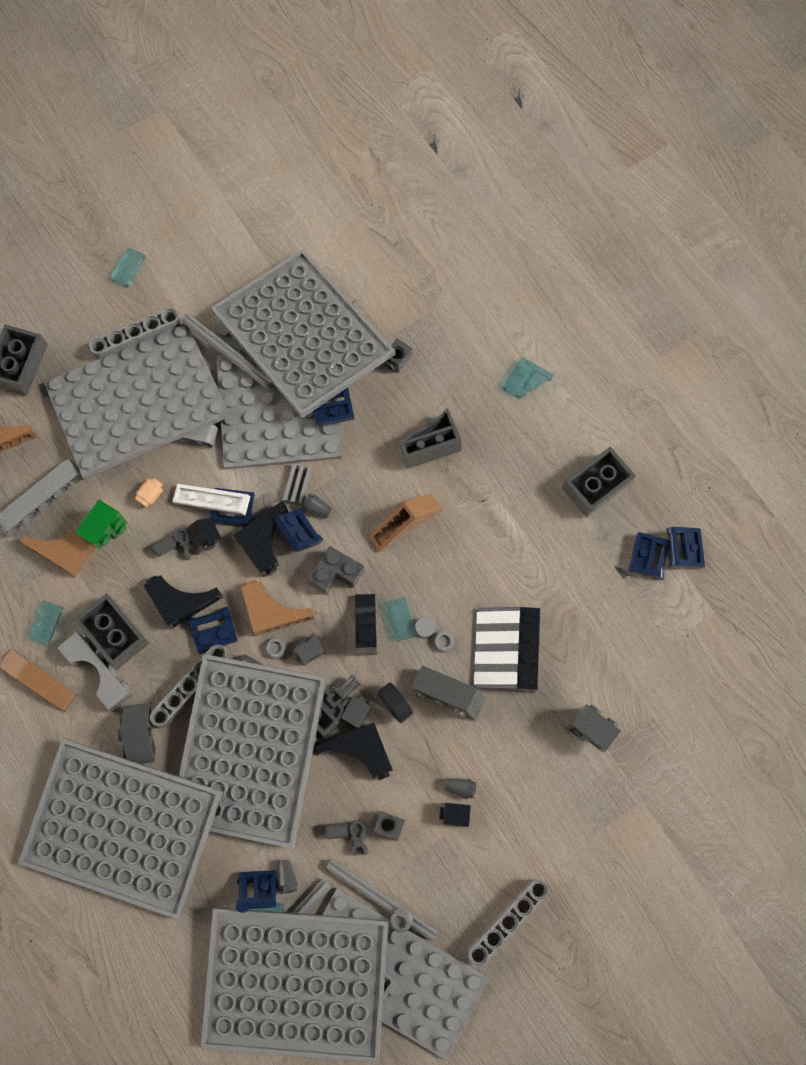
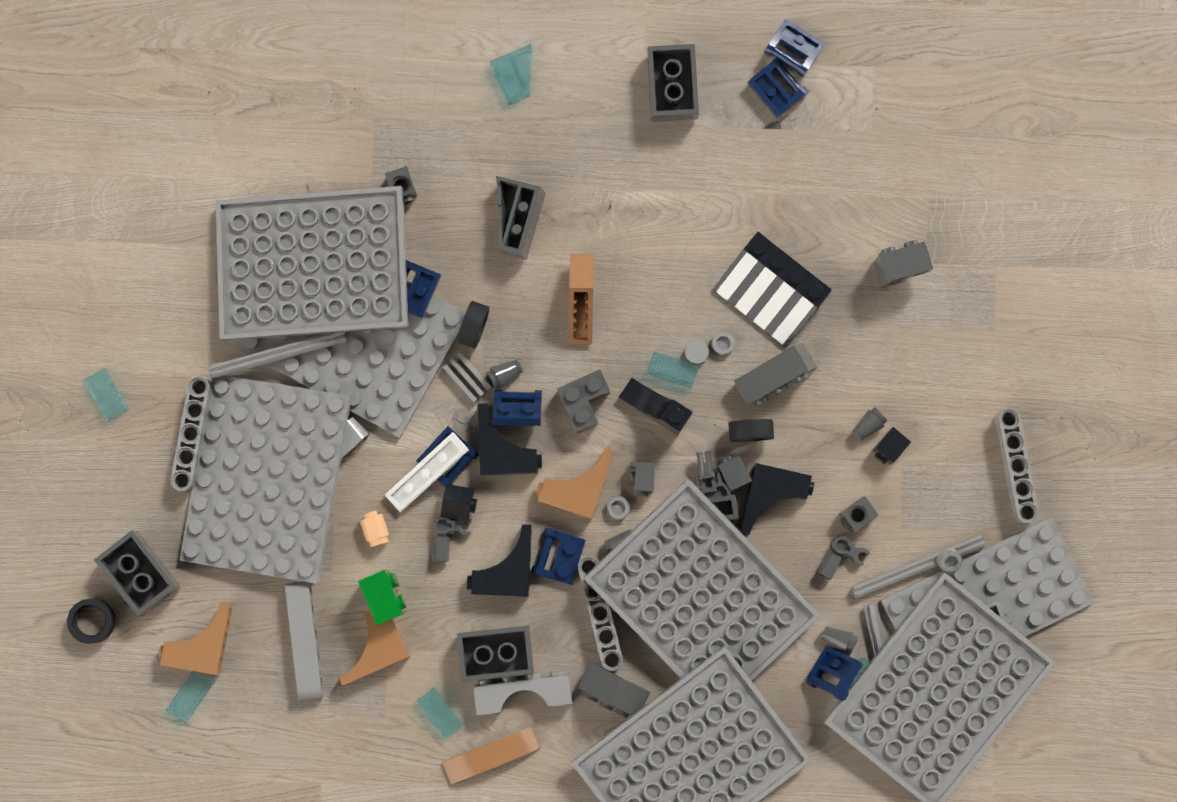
camera: 50 degrees left, 10 degrees up
(335, 461) = (473, 324): none -> black tyre

